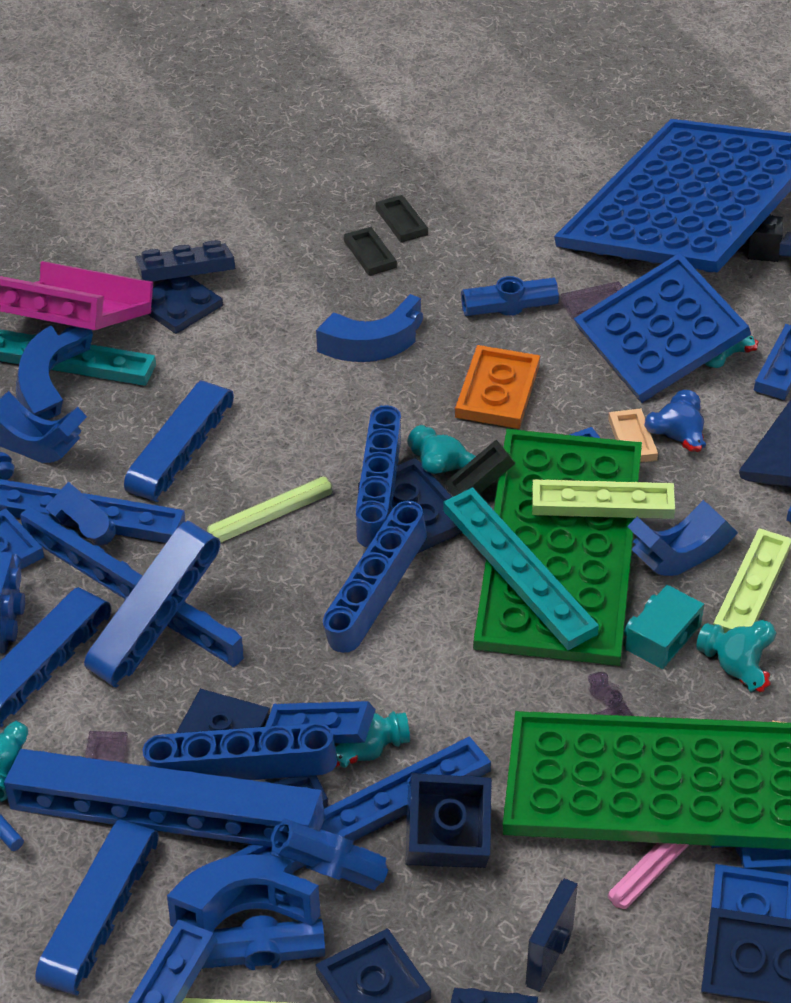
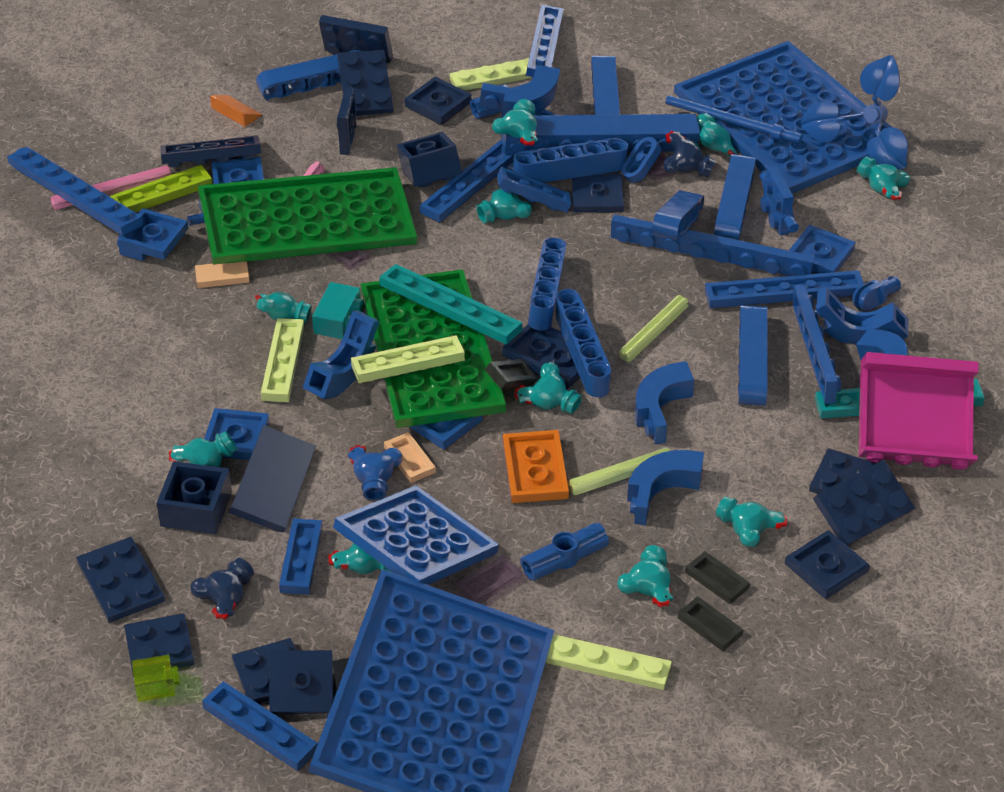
camera: 160 degrees right, 0 degrees up
(63, 727) = (686, 156): none -> dark blue animal
(91, 519) = (771, 266): blue leg -> none
(108, 412) = (816, 347): none -> blue plate
(125, 741) = (641, 159): none -> blue plate
(259, 232) = (827, 564): none -> dark blue plate
(298, 780) = (519, 123): none -> teal animal
(307, 281) = (749, 519): none -> teal animal
(320, 423) = (657, 389): none -> blue arch
(329, 854) = (475, 131): blue piece -> none
(406, 363) = (609, 474): none -> yellowish green axle
(438, 258) = (649, 577): none -> teal animal
(511, 211) = (608, 662): none -> yellowish green plate
(605, 691) = (361, 267): clear purple arm -> none

